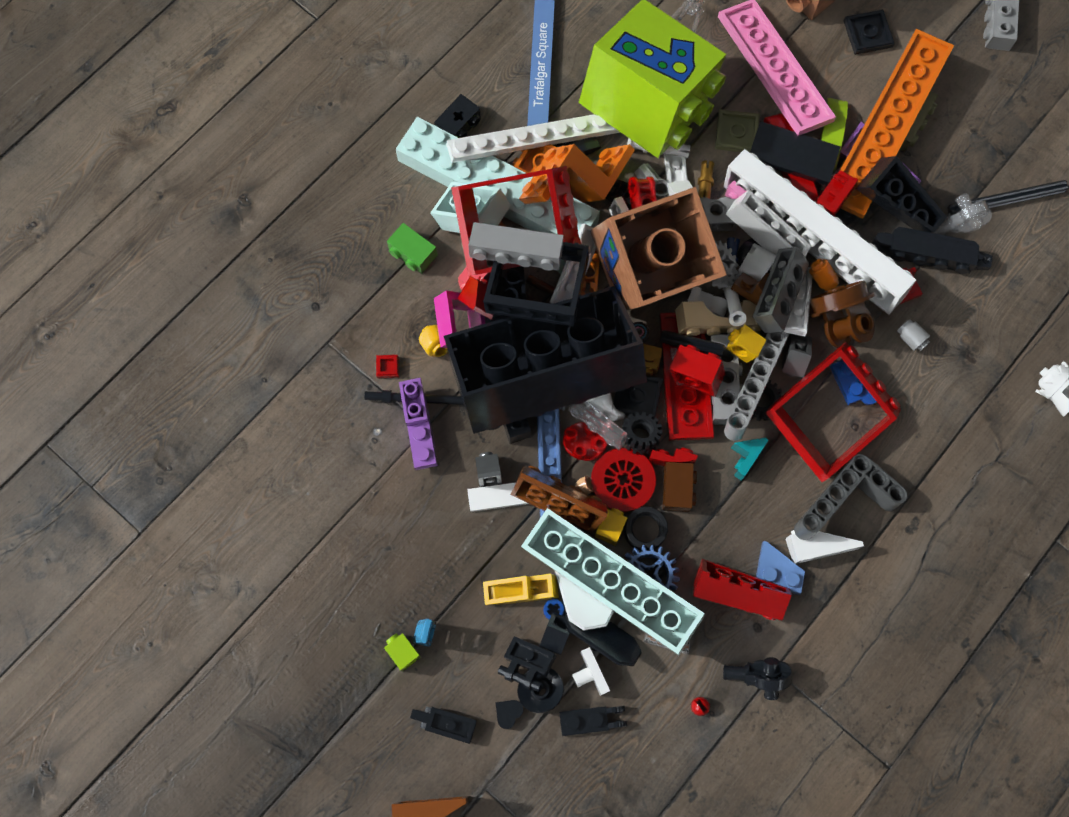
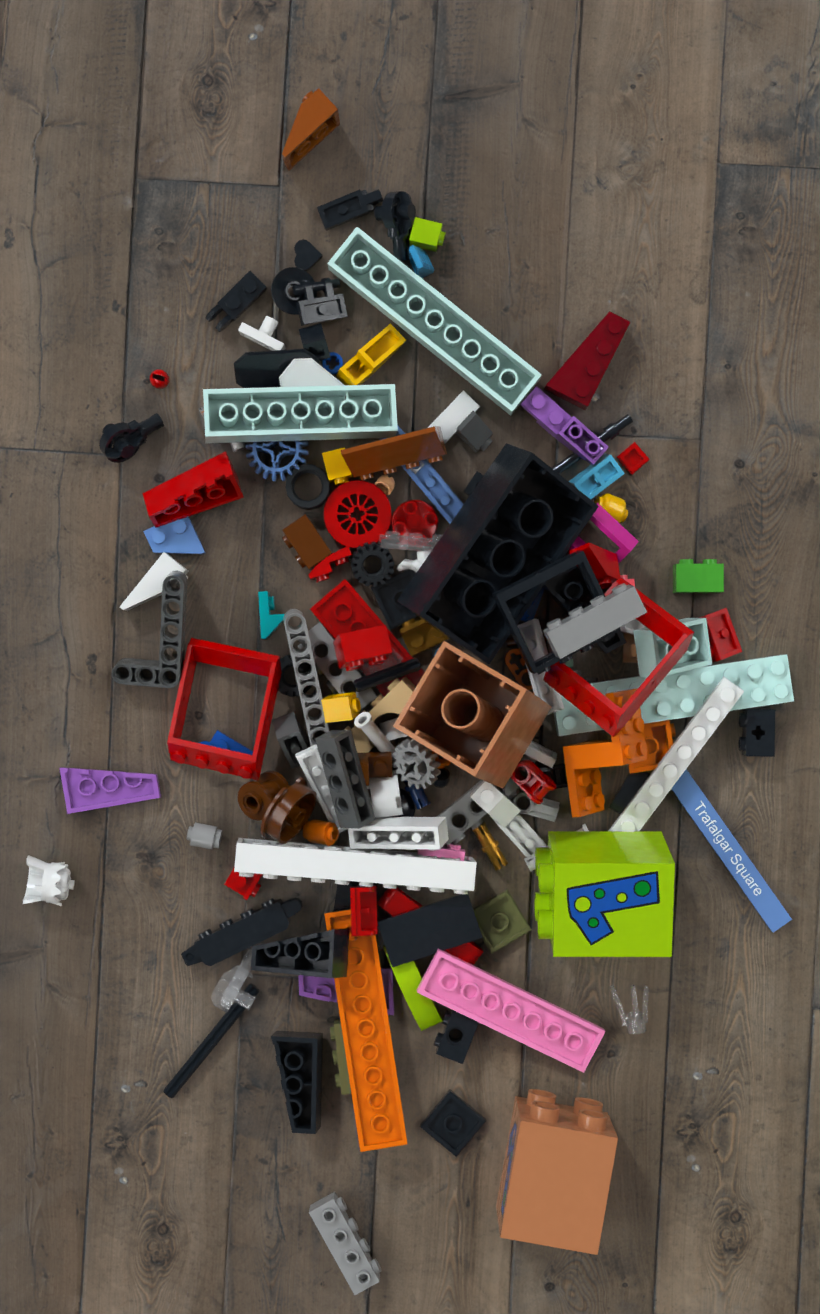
camera: 140 degrees right, 15 degrees up
(360, 455) = (587, 365): none -> dark red wedge
(415, 679) = (397, 220): none -> black pin
(427, 198) = (722, 635): none -> red bracket
(429, 368) = (597, 476): none -> medium azure hinge
(451, 579) = (433, 321): none -> light aqua brick
(832, 72) = (455, 1048): none -> black brick
(957, 130) = (301, 1077): none -> black wedge
(971, 426) = (103, 788): none -> medium lavender wing

